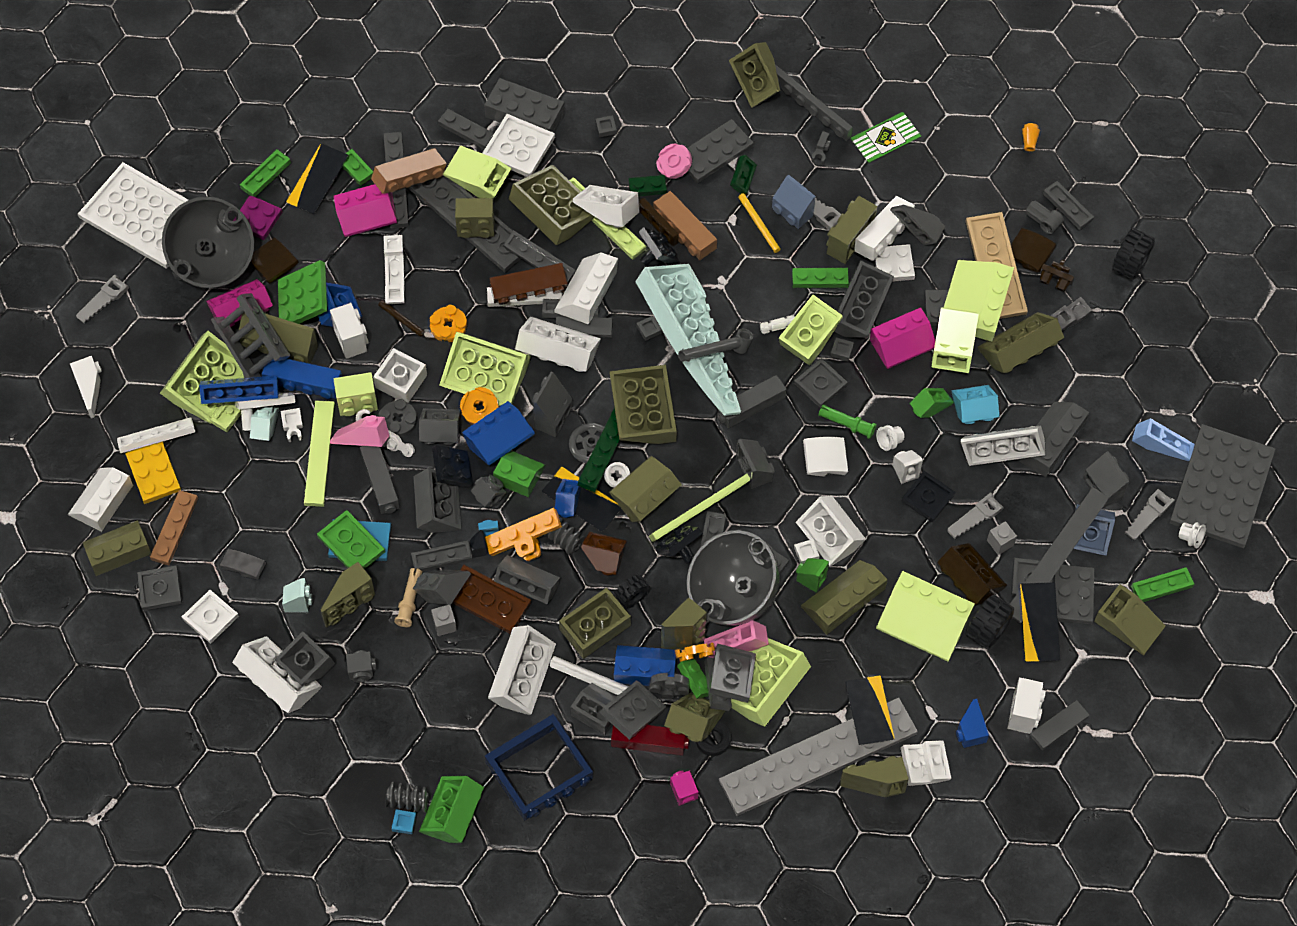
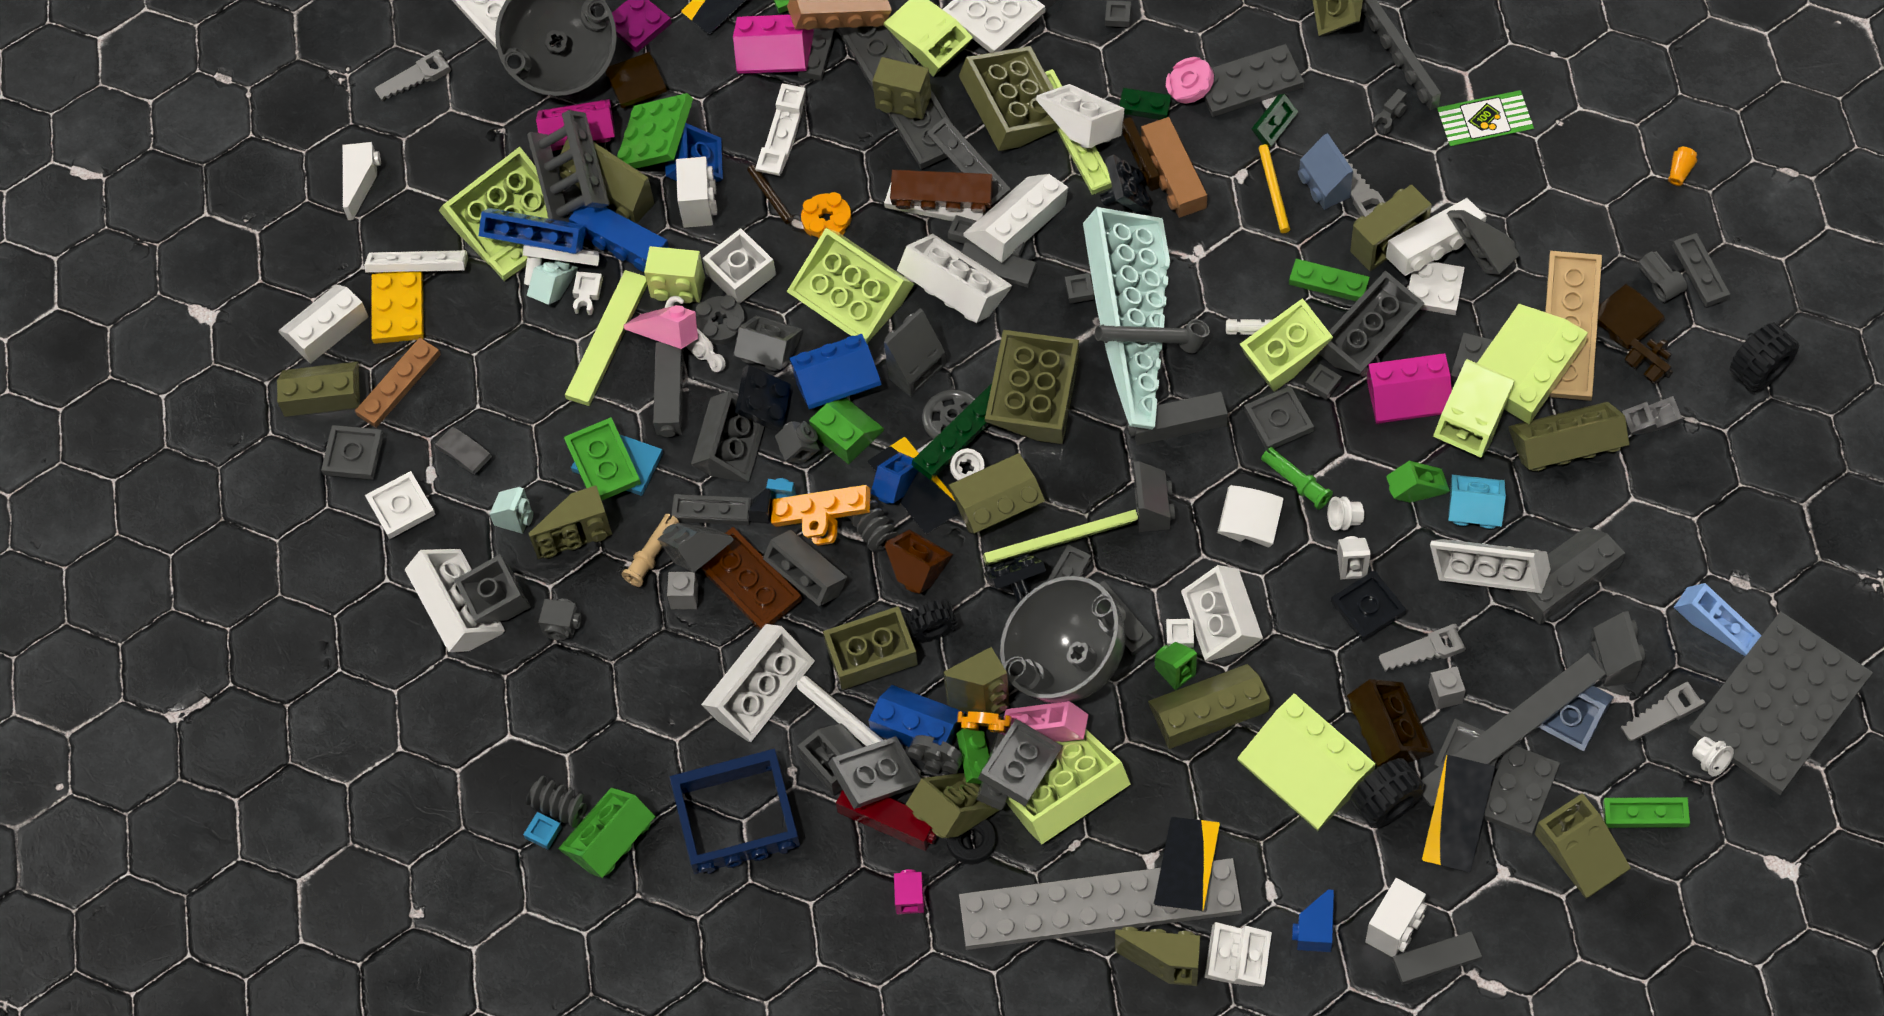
camera: 25 degrees right, 0 degrees up
(474, 397) = (823, 318): light orange plate -> none

